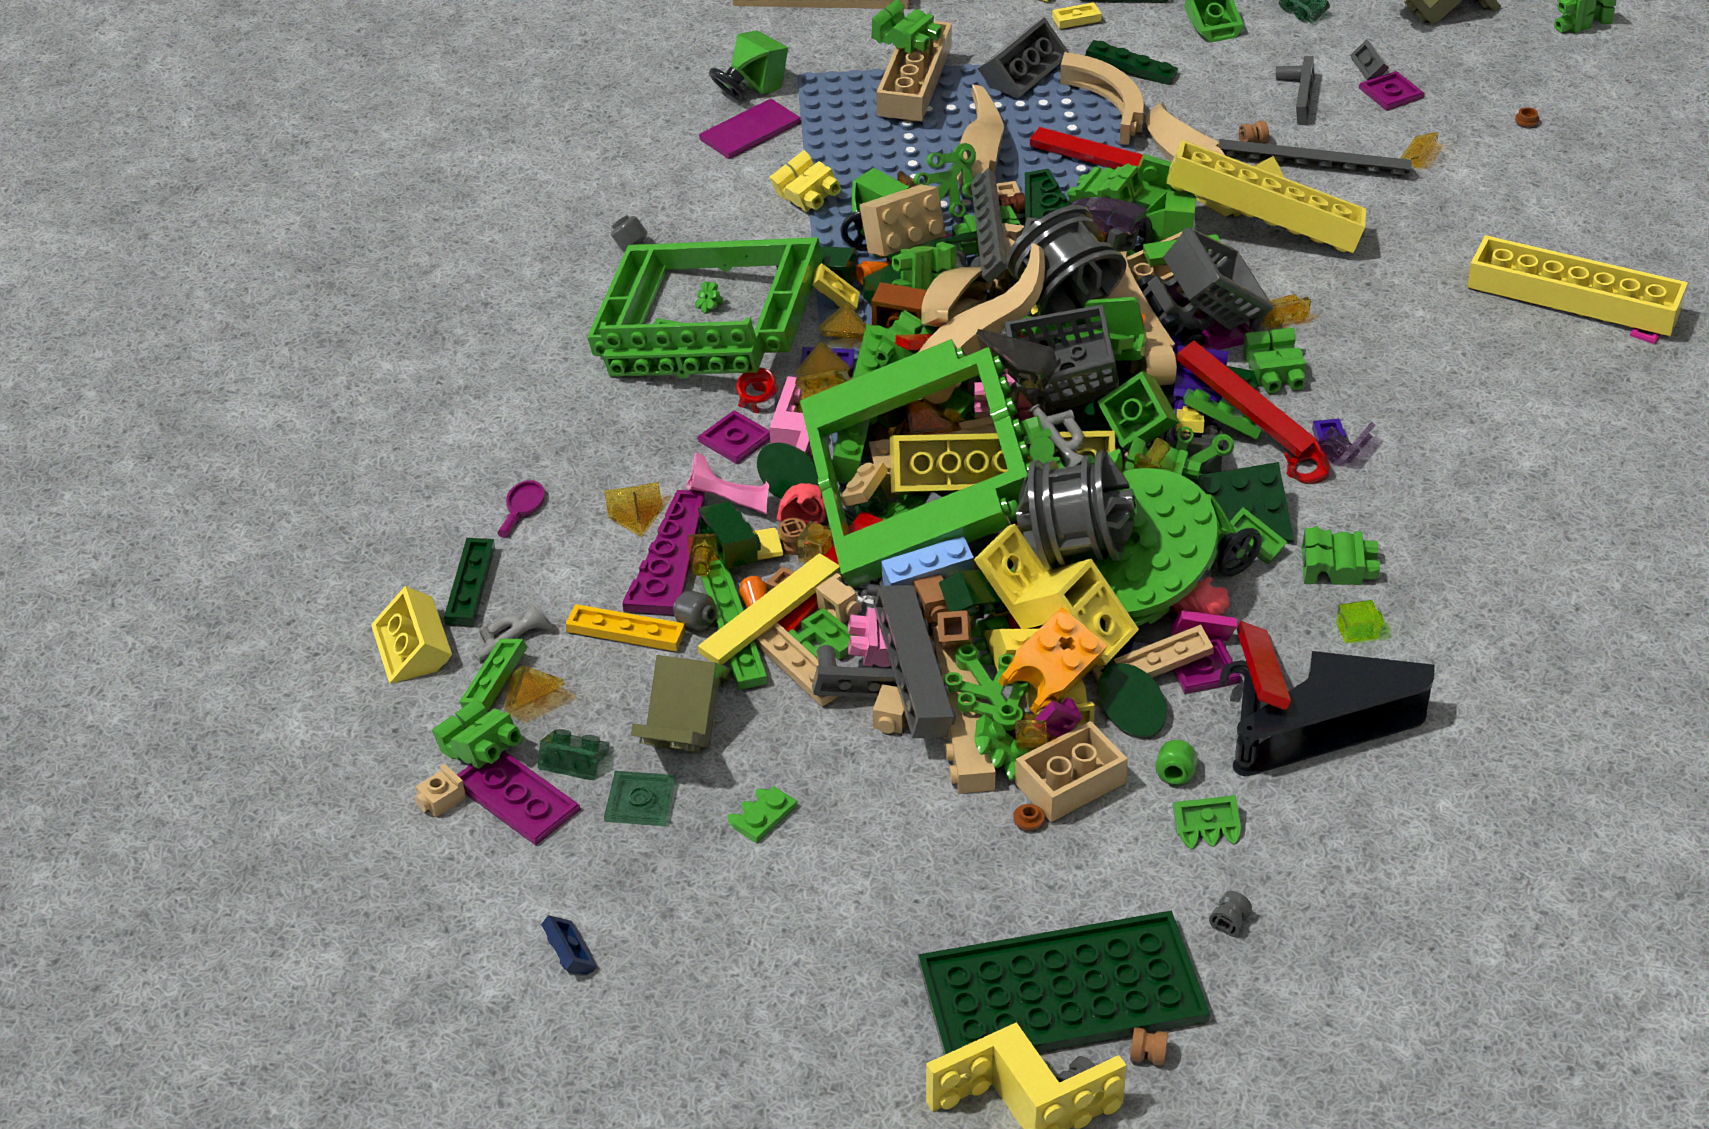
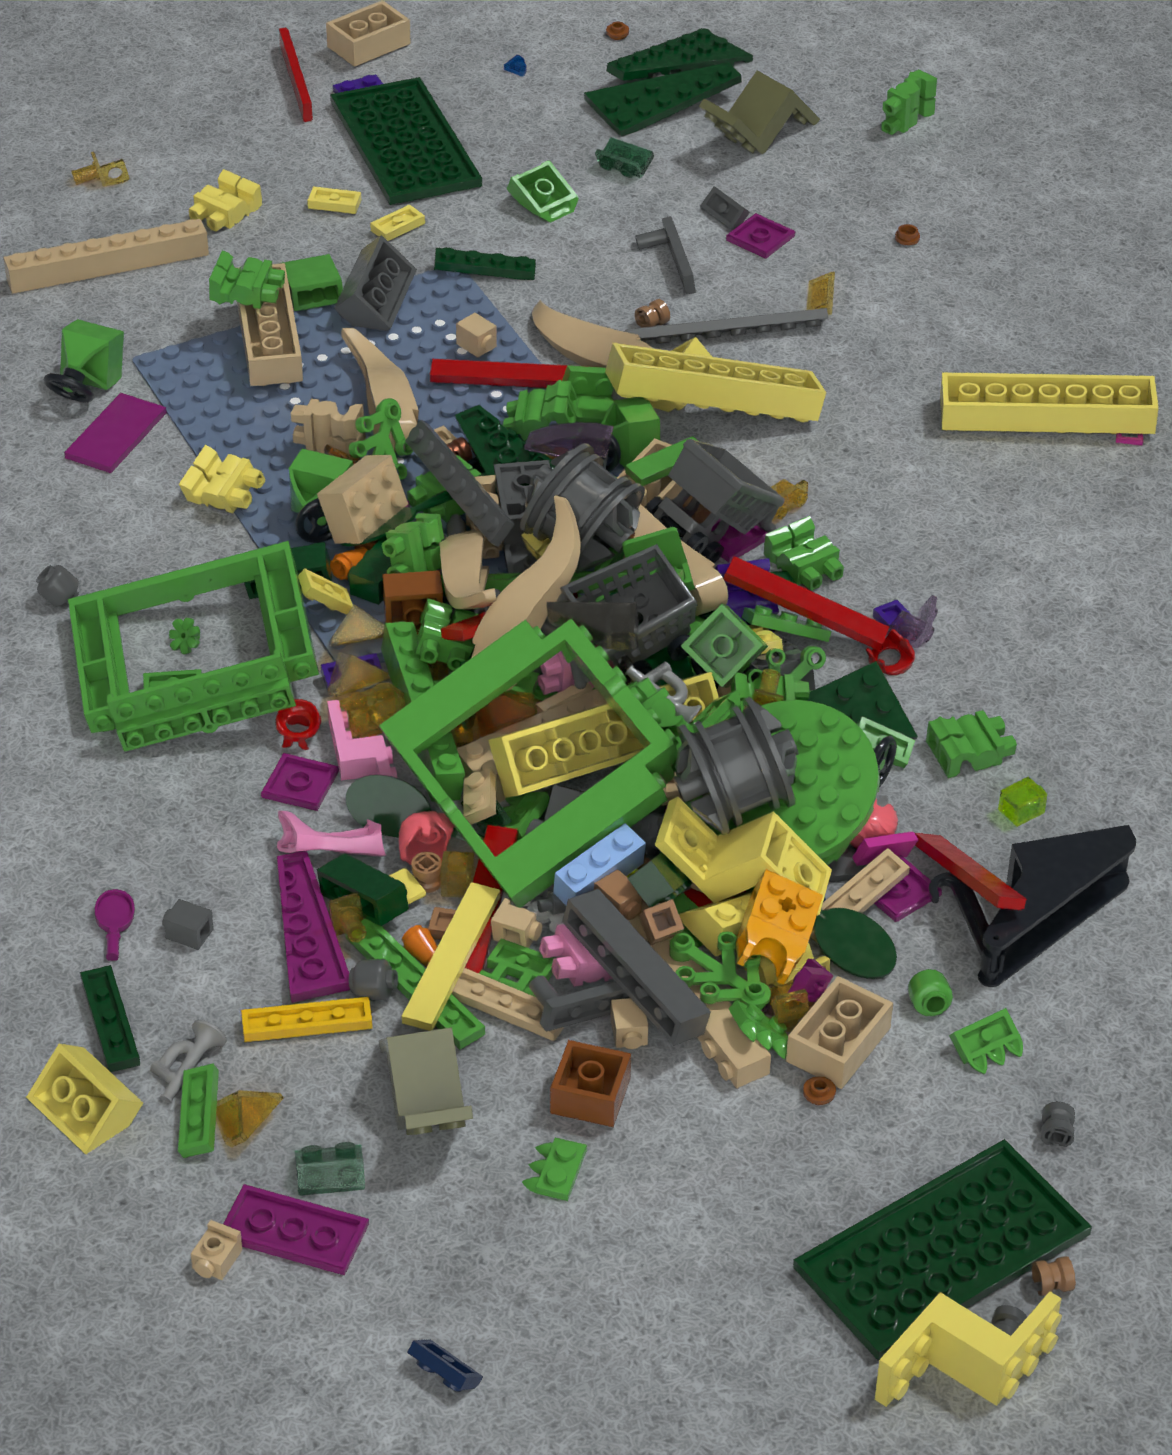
camera: 25 degrees left, 0 degrees up
(477, 734) = (225, 1182): bright green hips -> none
(574, 524) = (188, 924): none -> dark grey brick
(634, 506) = (239, 887): clear yellow slope -> none
(640, 798) = (425, 1192): clear green tile -> none
(826, 749) = (590, 1083): none -> dark orange brick
(911, 157) = (326, 425): none -> tan hips
(973, 45) = (313, 282): none -> bright green brick
(1087, 115) = (476, 335): none -> tan brick
(1110, 83) = (484, 294): tan arch -> none

